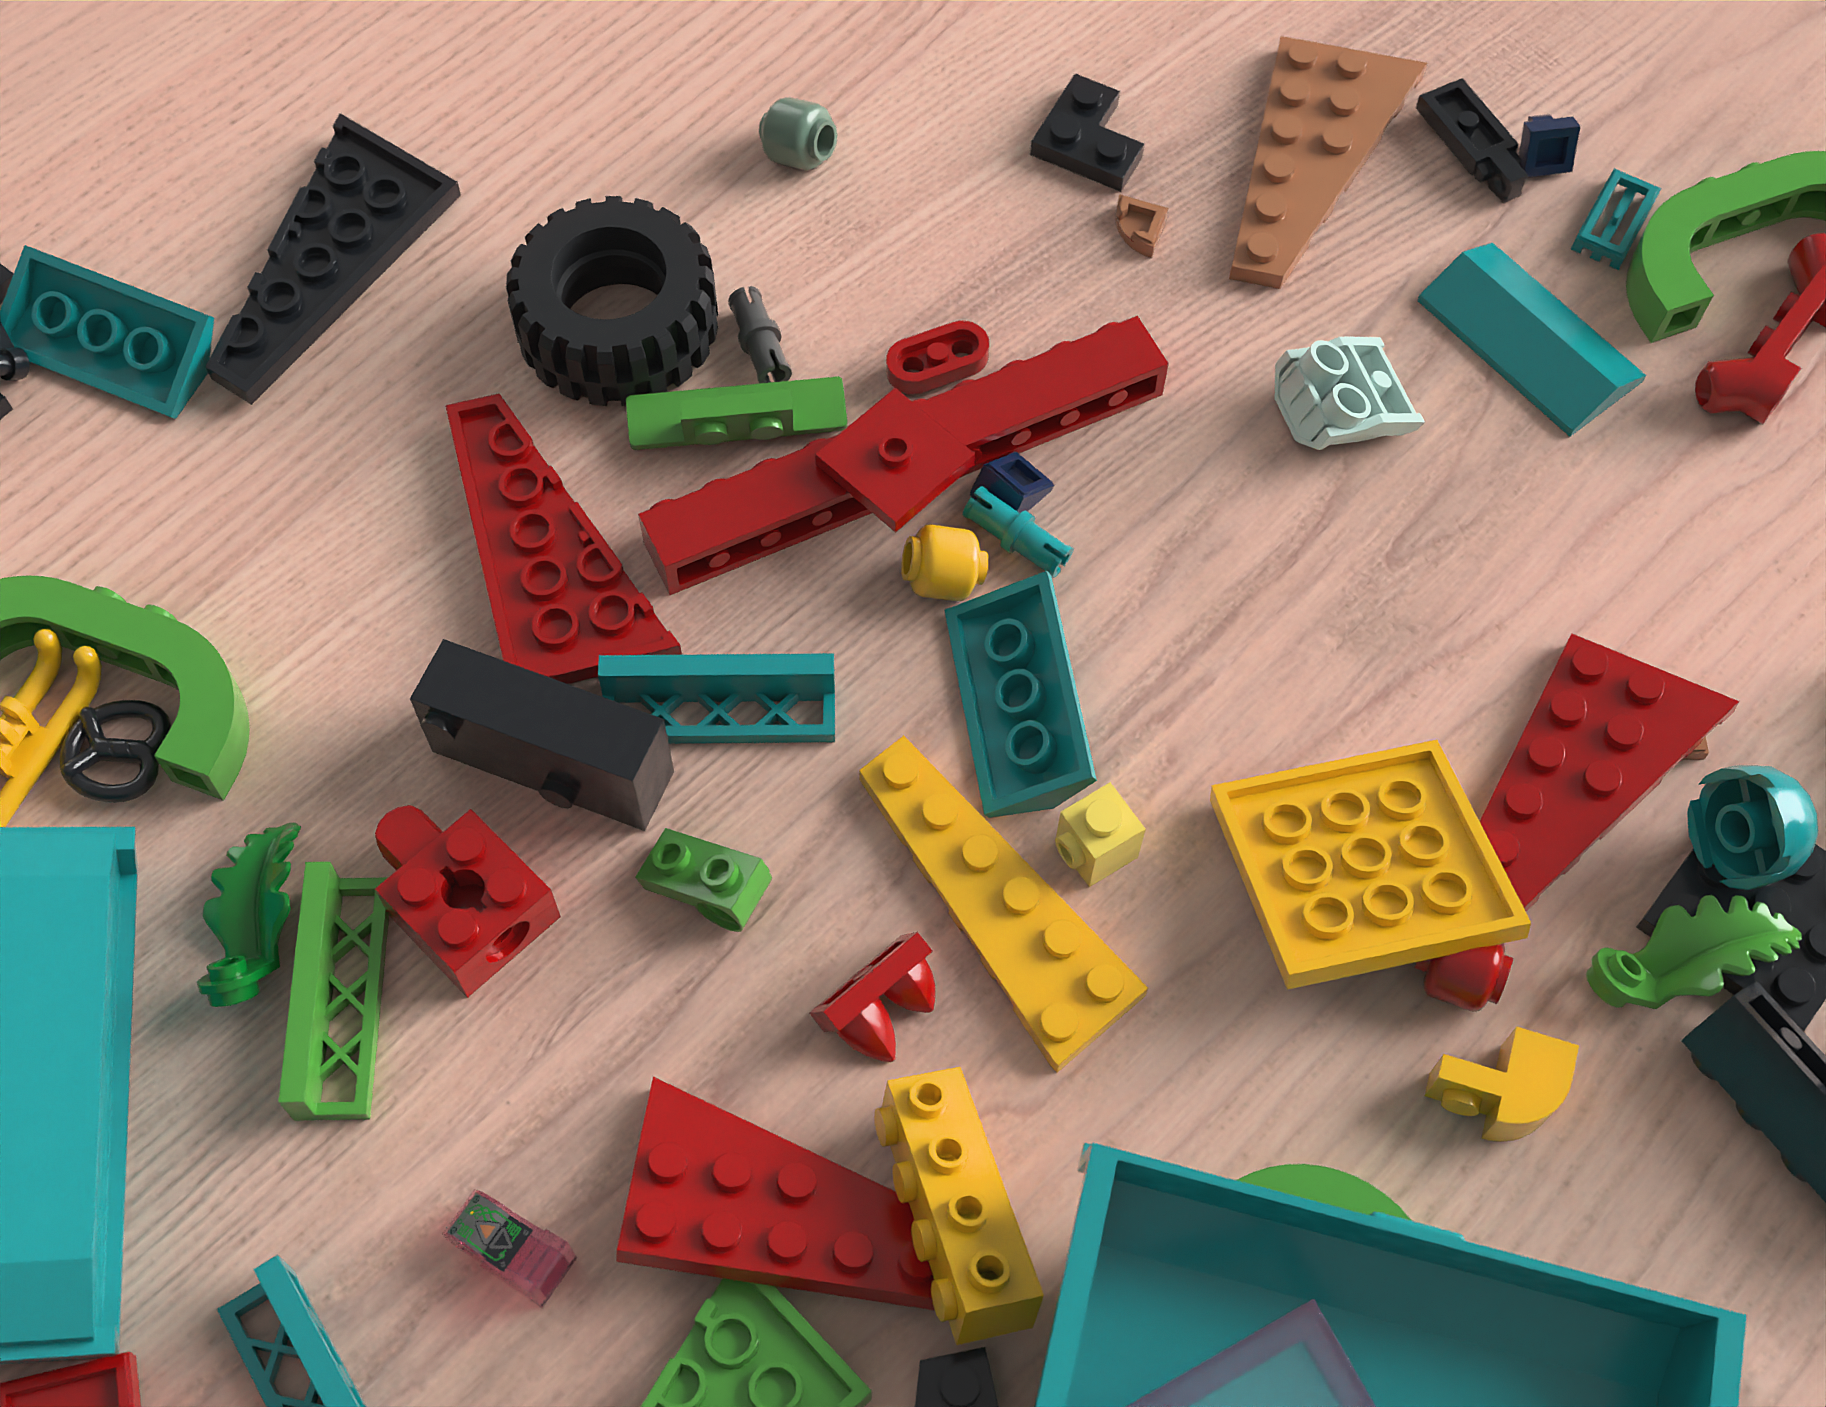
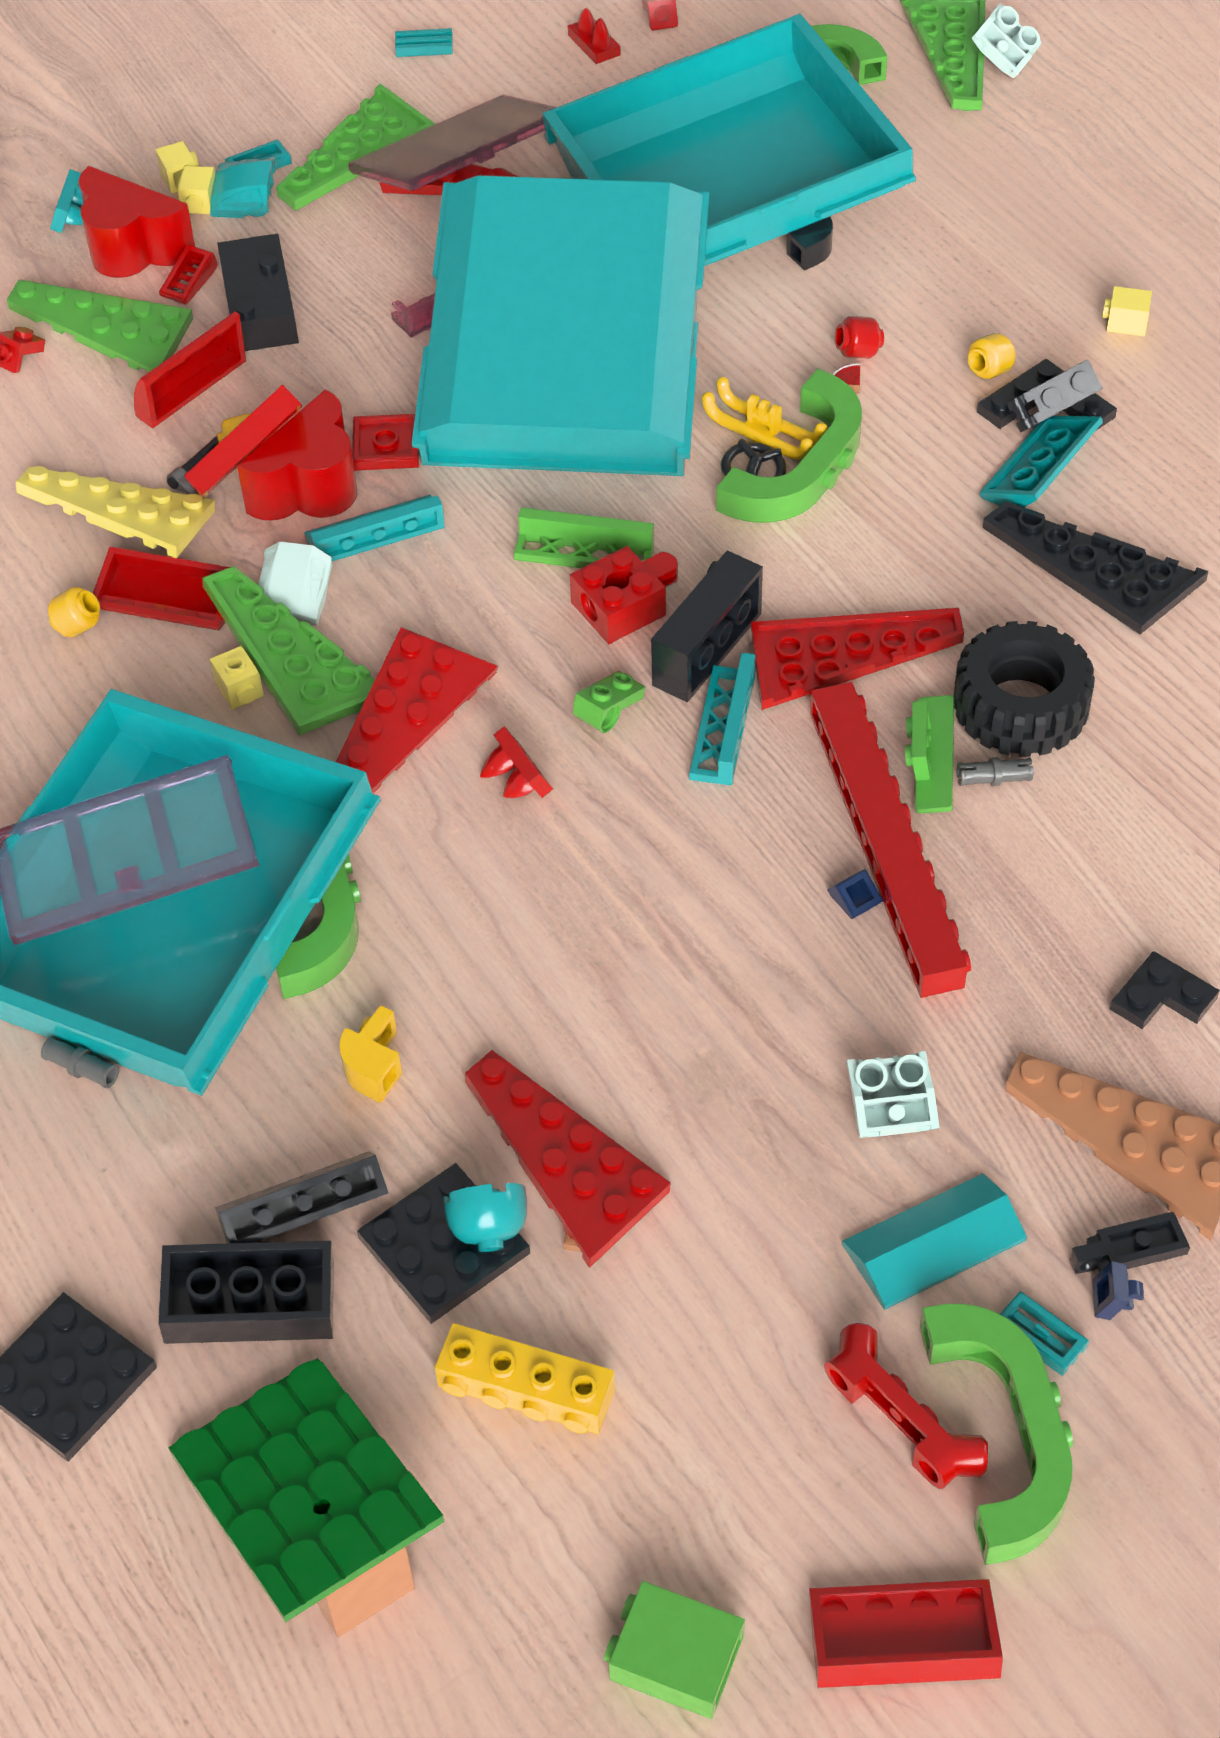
camera: 105 degrees right, 10 degrees down
(248, 915) = (599, 501): green plant -> none
(510, 1247) = (423, 601): leg -> none
(798, 133) = (1169, 810): sand green head -> none
(895, 459) = (865, 807): red plate -> none
(935, 358) = (964, 867): red plate -> none
(943, 562) = (795, 838): yellow head -> none
(958, 1206) = (394, 766): yellow brick -> none
(1017, 531) = (814, 885): teal pin -> none
(1020, 698) = (693, 861): teal slope -> none
(1029, 939) = (538, 845): yellow wing -> none
(1099, 834) = (585, 882): light yellow brick -> none
(1140, 223) = (1072, 1010): nougat tile -> none
(1366, 864) = (528, 1007): yellow plate -> none
(1467, 977) = (448, 1048): red head -> none
(1692, 953) = (419, 1173): bright green plant -> none

